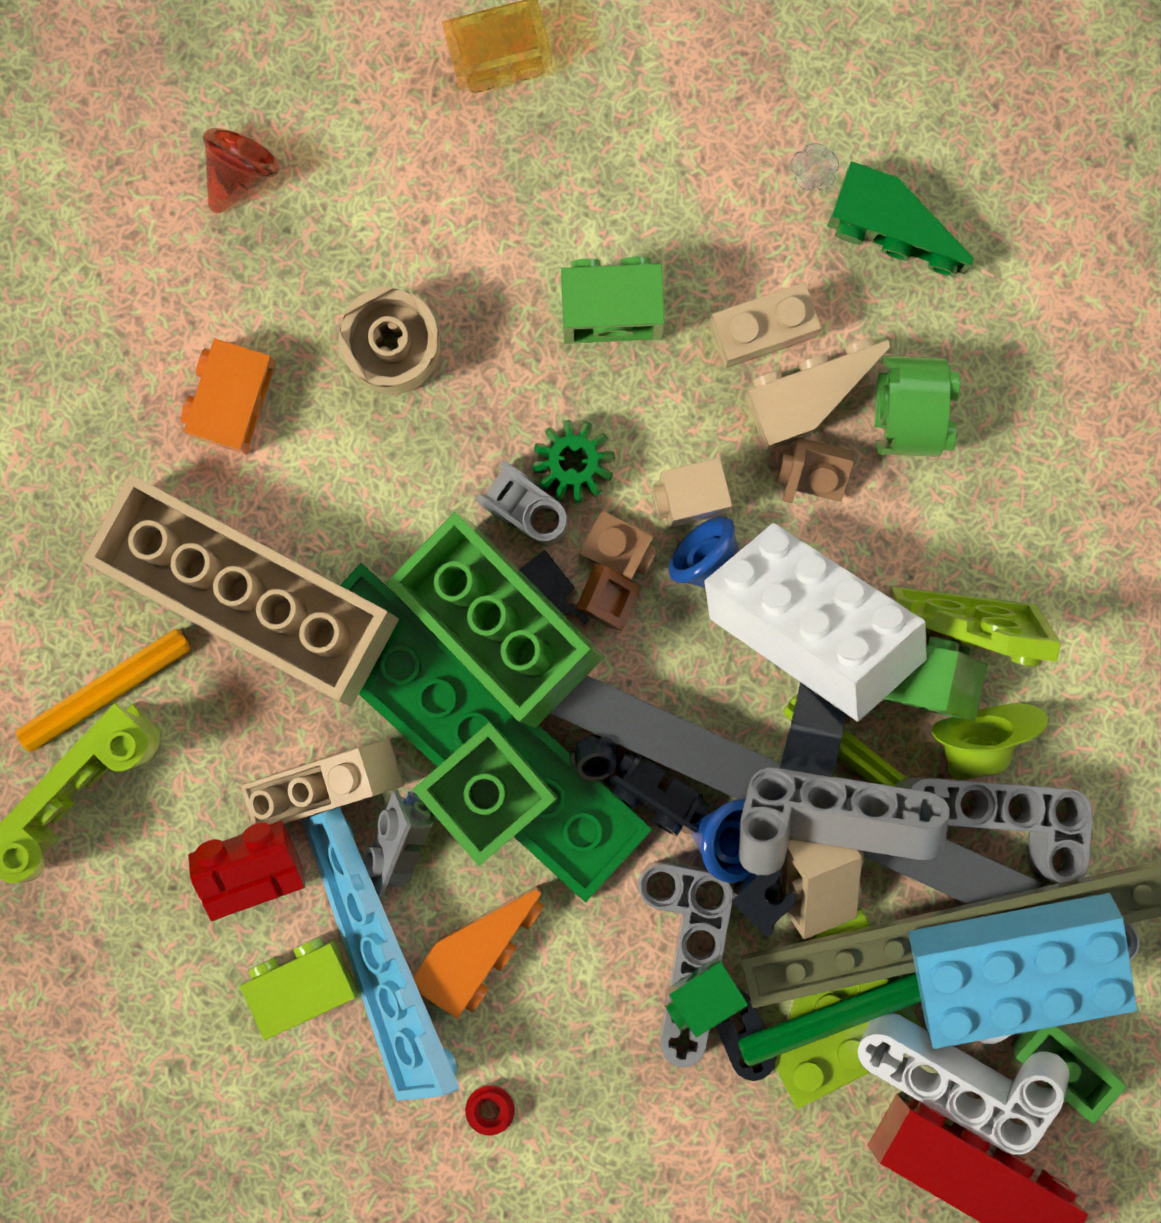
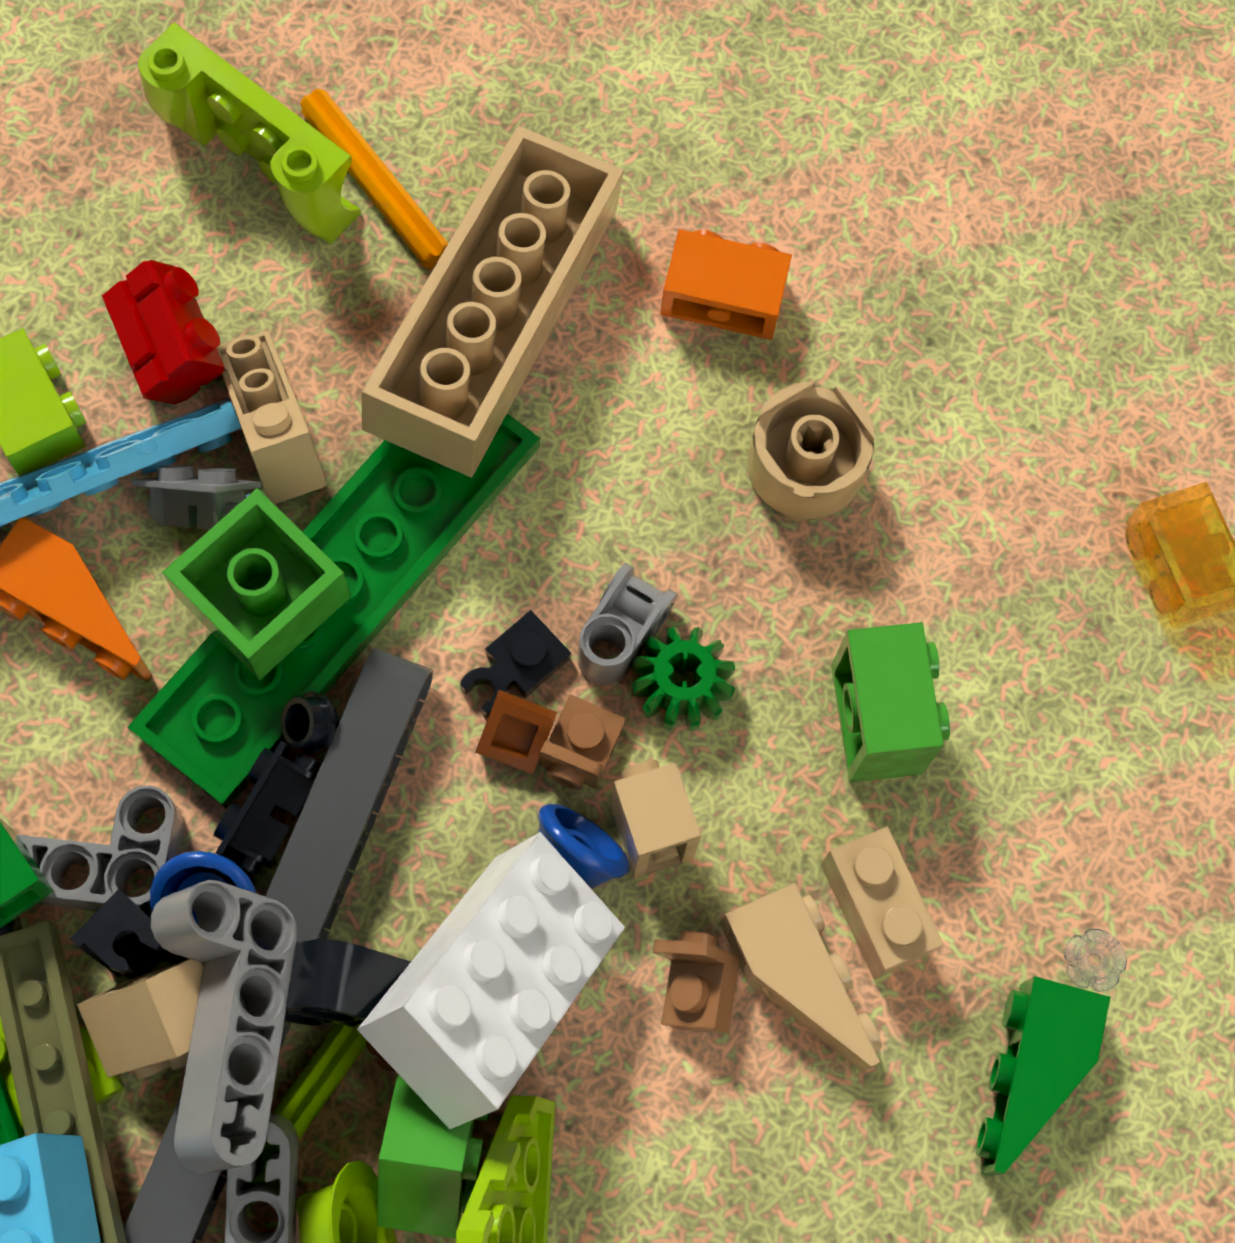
camera: 80 degrees right, 15 degrees down
(234, 167) = (998, 272): clear red hat -> none
(494, 620) = (473, 586): bright green brick -> none
(915, 406) = (795, 1103): bright green brick -> none

